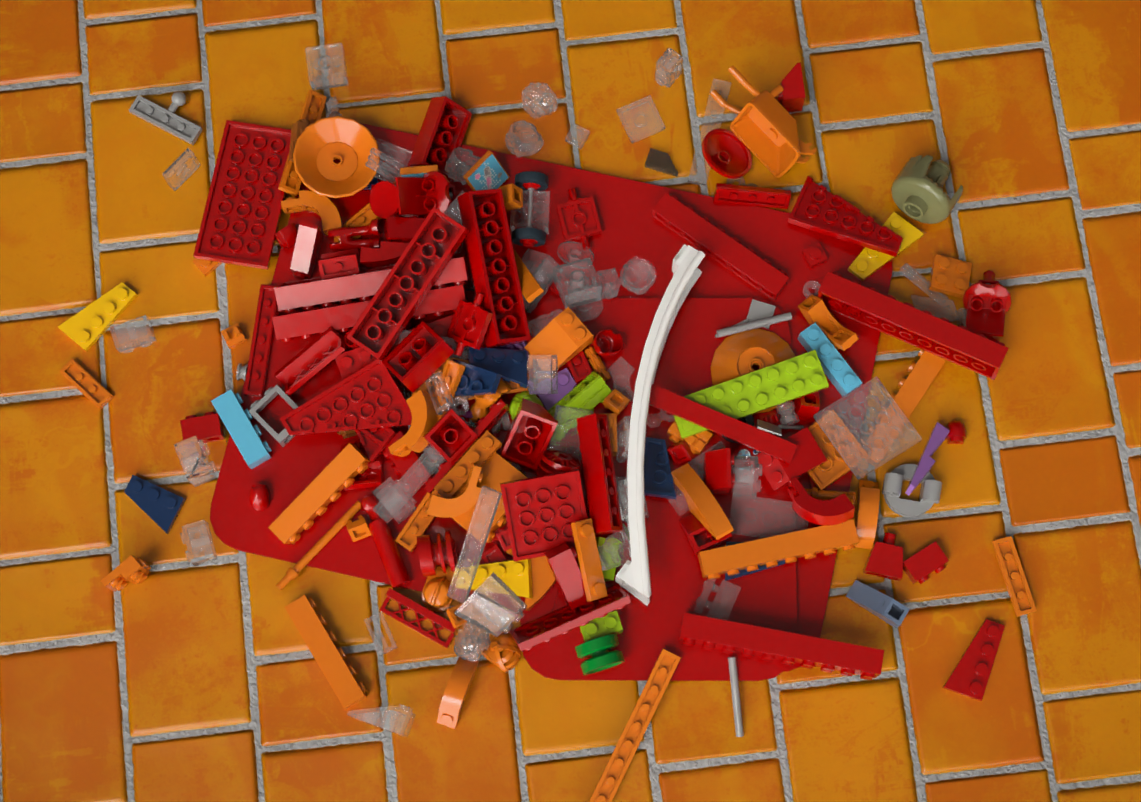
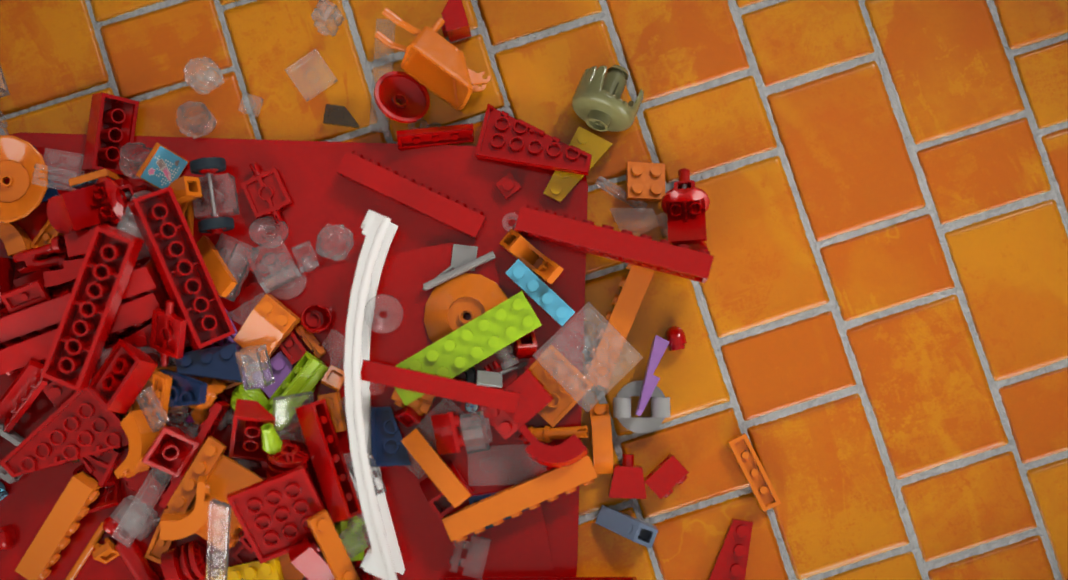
camera: 10 degrees left, 10 degrees up
(549, 441) = (270, 439): none -> lime cone
(682, 348) = (386, 304): none -> clear dish

